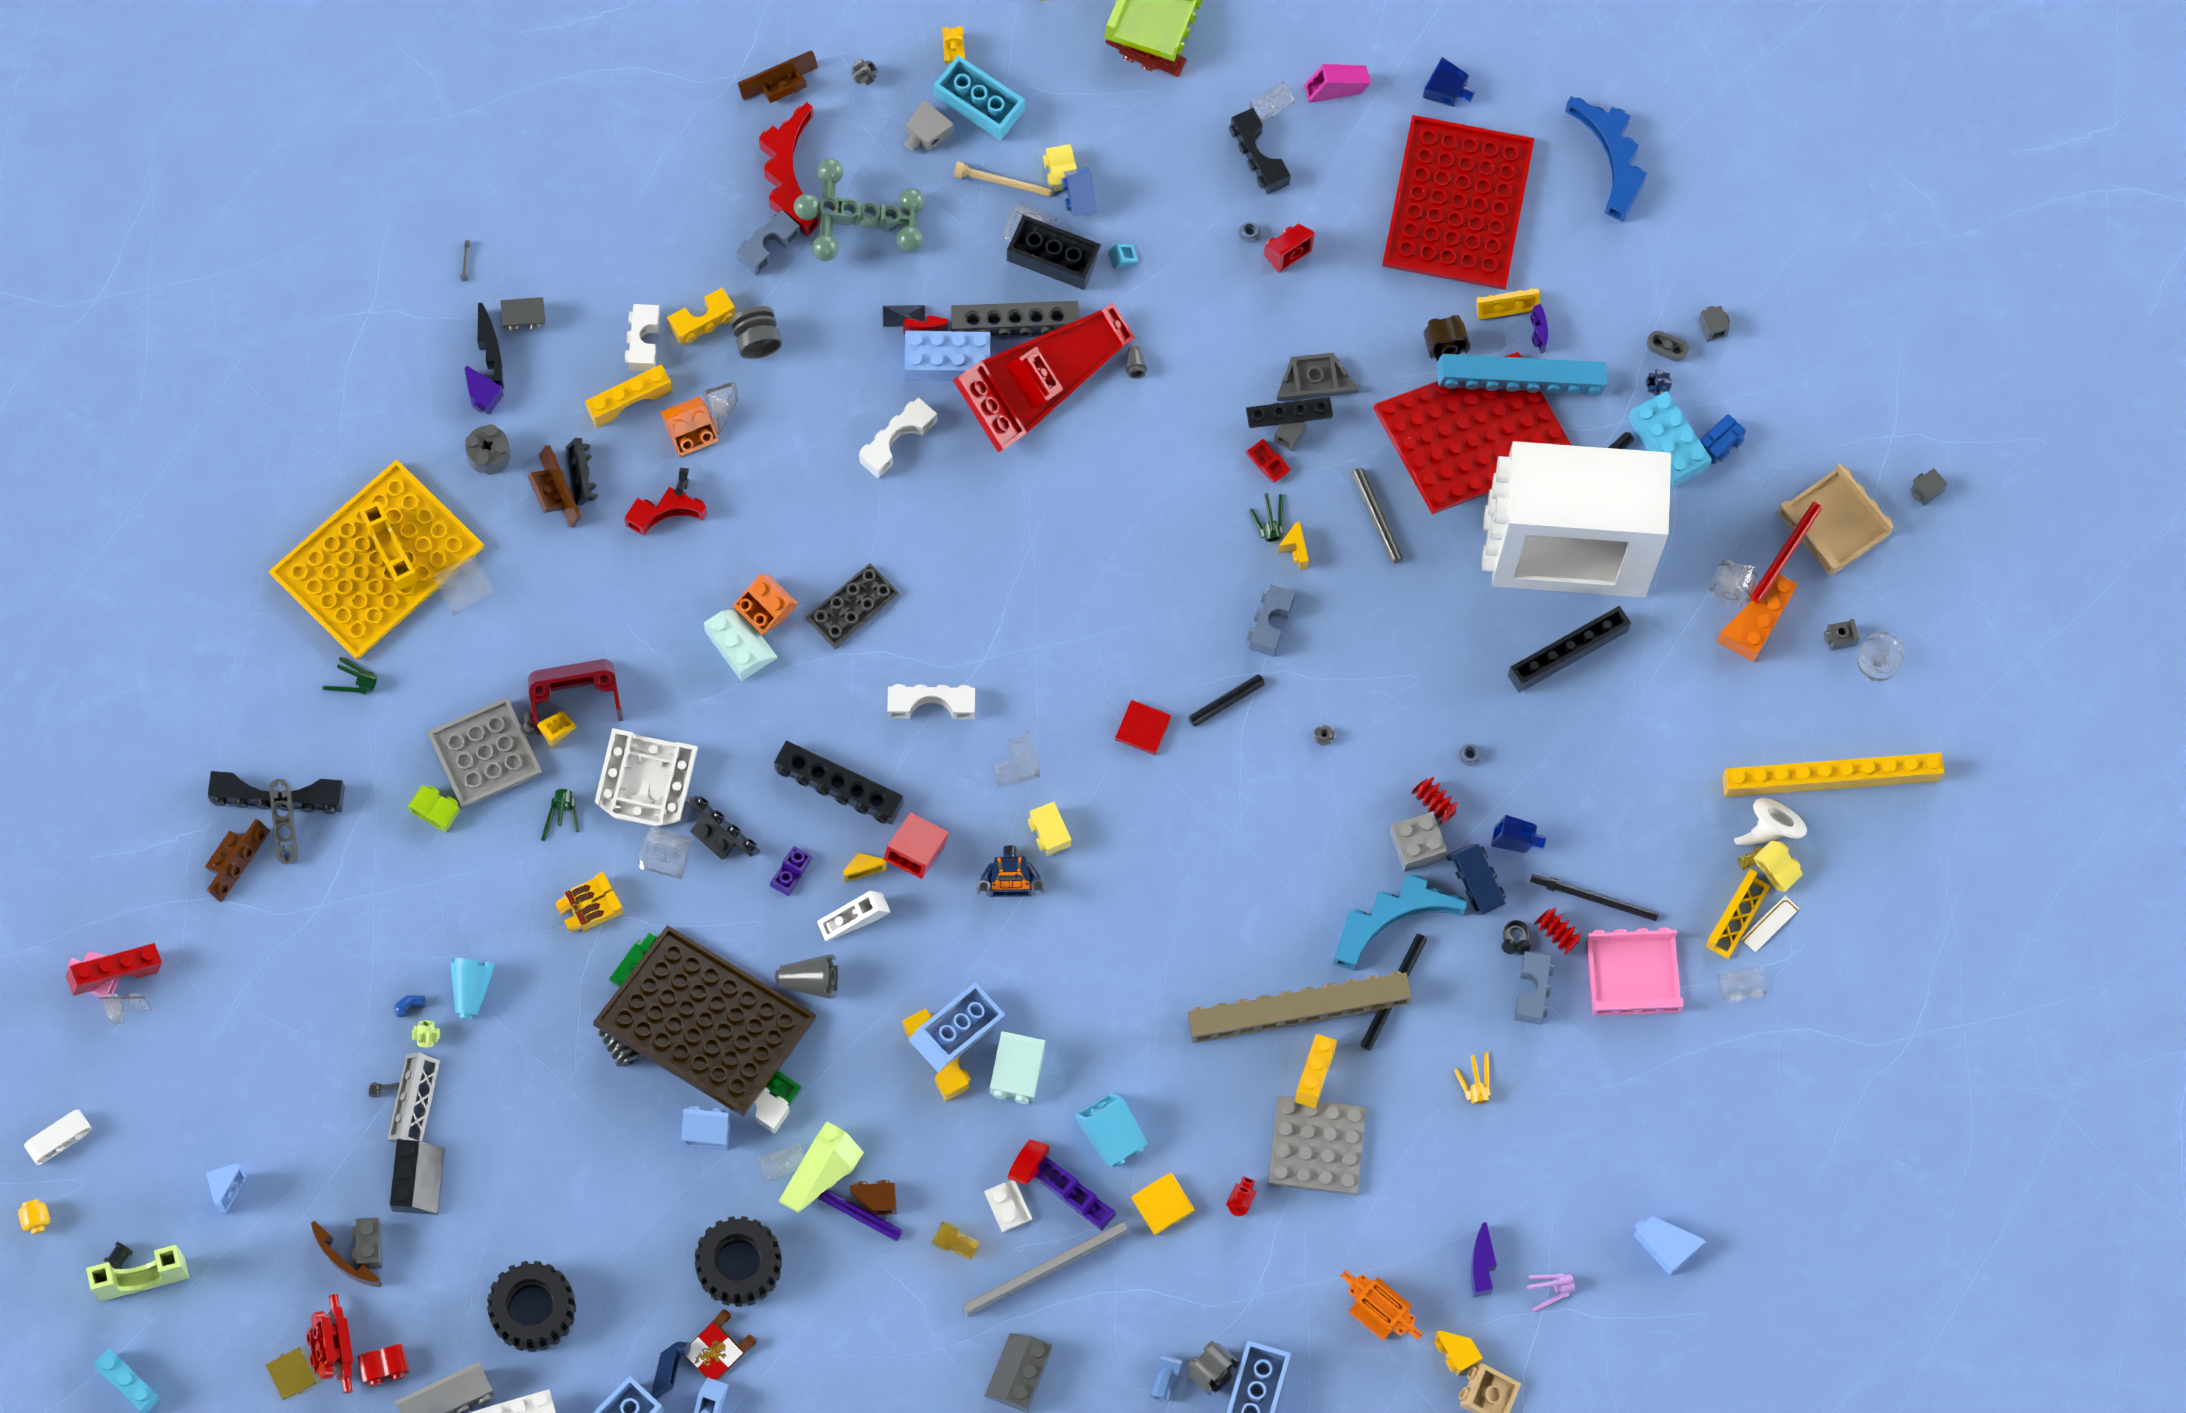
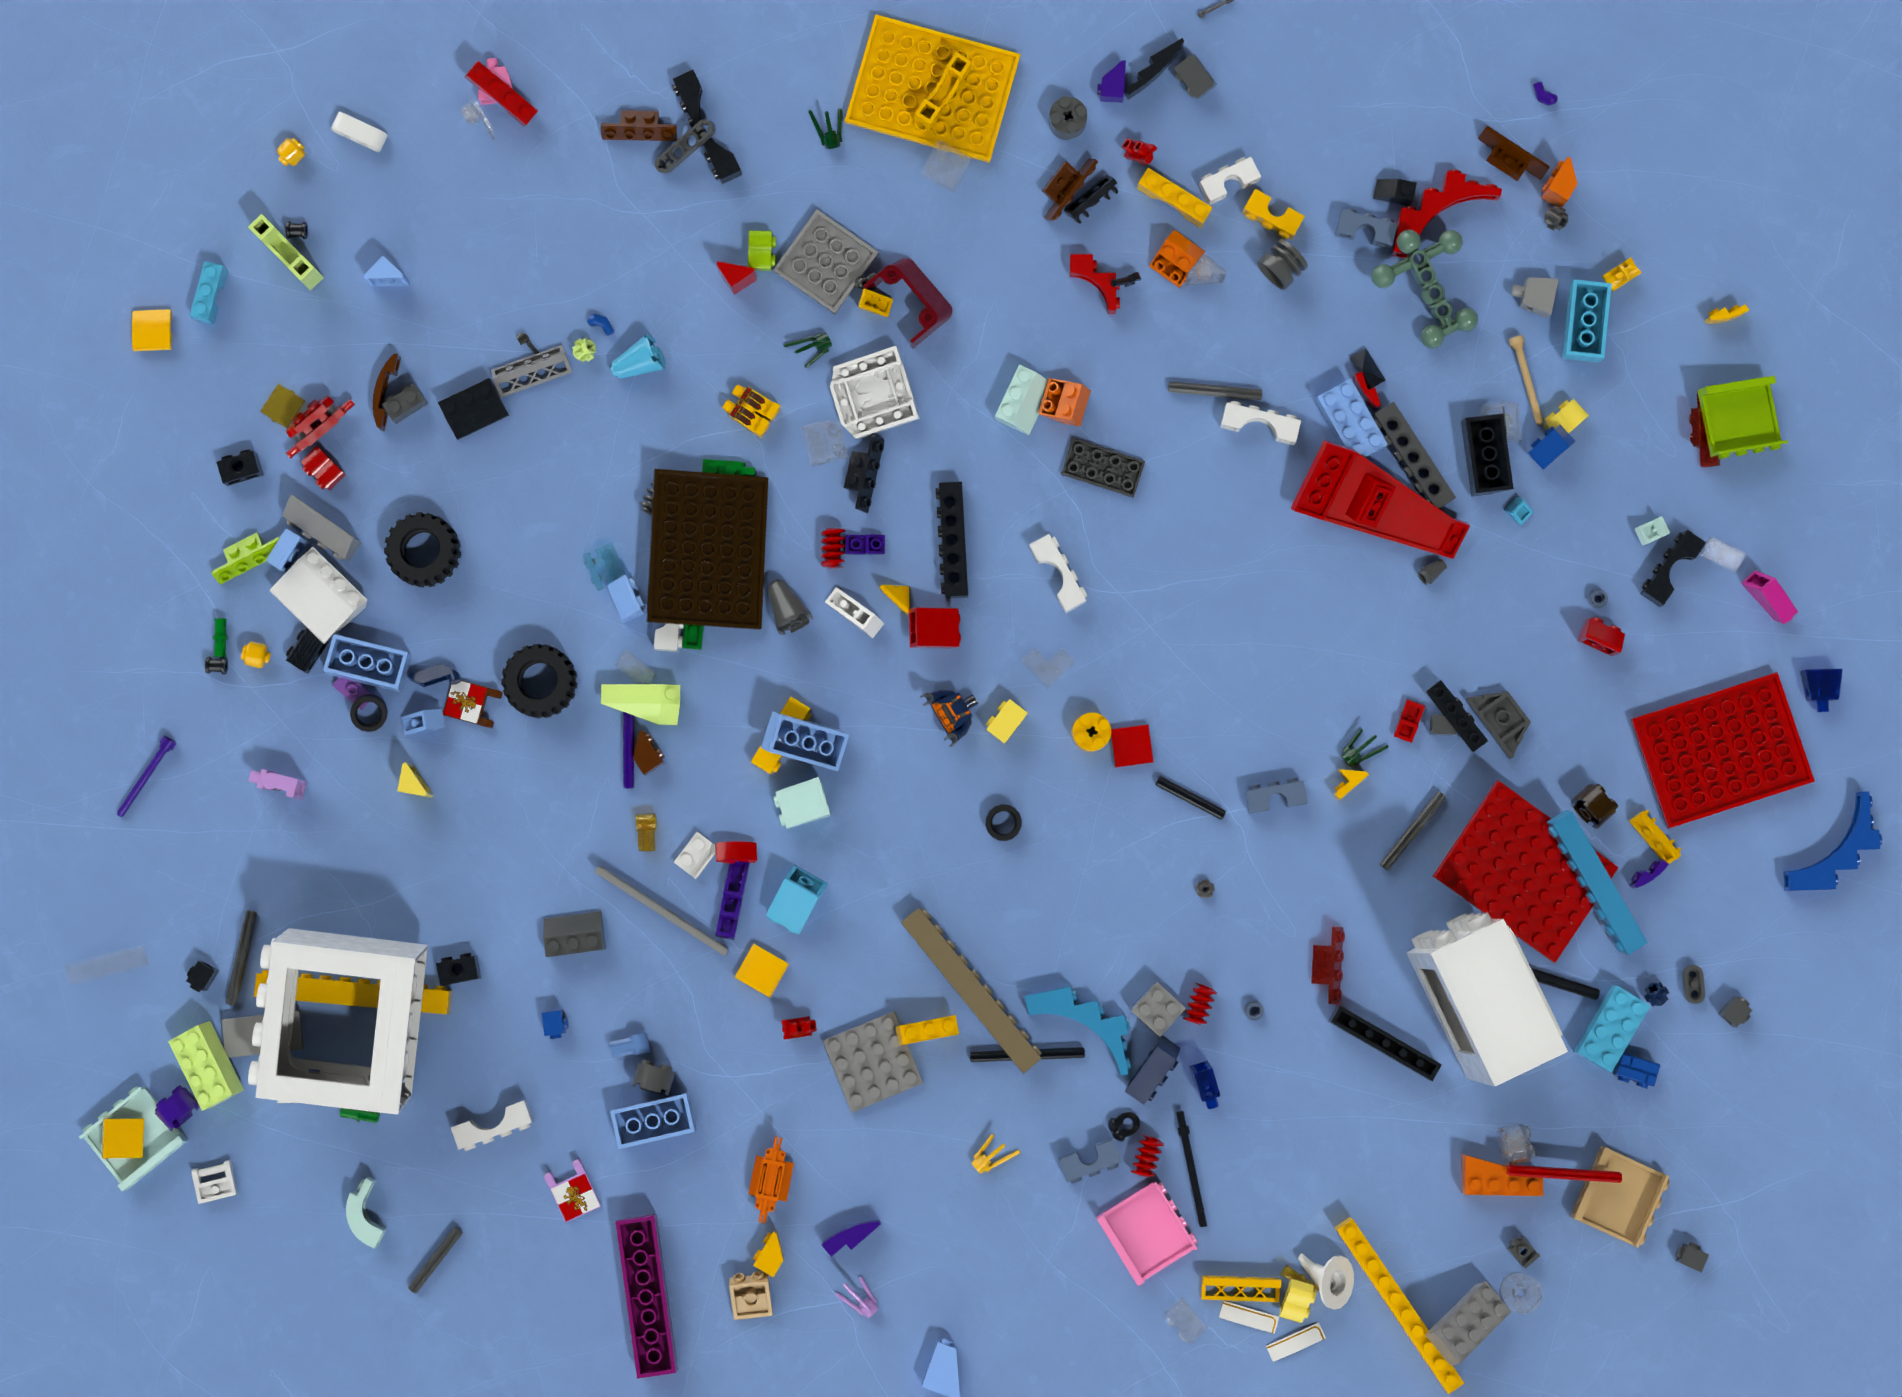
camera: 65 degrees right, 15 degrees up
(444, 844) = (736, 276): none -> red slope
(563, 402) = (1138, 151): none -> red hips
(659, 1128) = (609, 562): none -> clear light blue plate
(740, 21) = (1543, 96): none -> dark purple arm
(748, 196) = (1395, 191): none -> black slope
(776, 902) = (832, 548): none -> red piece
(835, 48) = (1561, 186): none -> orange slope
(839, 462) = (1215, 390): none -> dark grey axle
(1107, 744) = (1081, 737): none -> yellow brick
(1152, 872) = (1007, 808): none -> black tyre
(1213, 149) = (1652, 531): none -> light aqua bracket
(1462, 662) = (1328, 963): none -> clear red bracket
(1818, 893) = (1295, 1342): none -> white sticker
(1884, 717) = (1468, 1323): none -> light grey brick

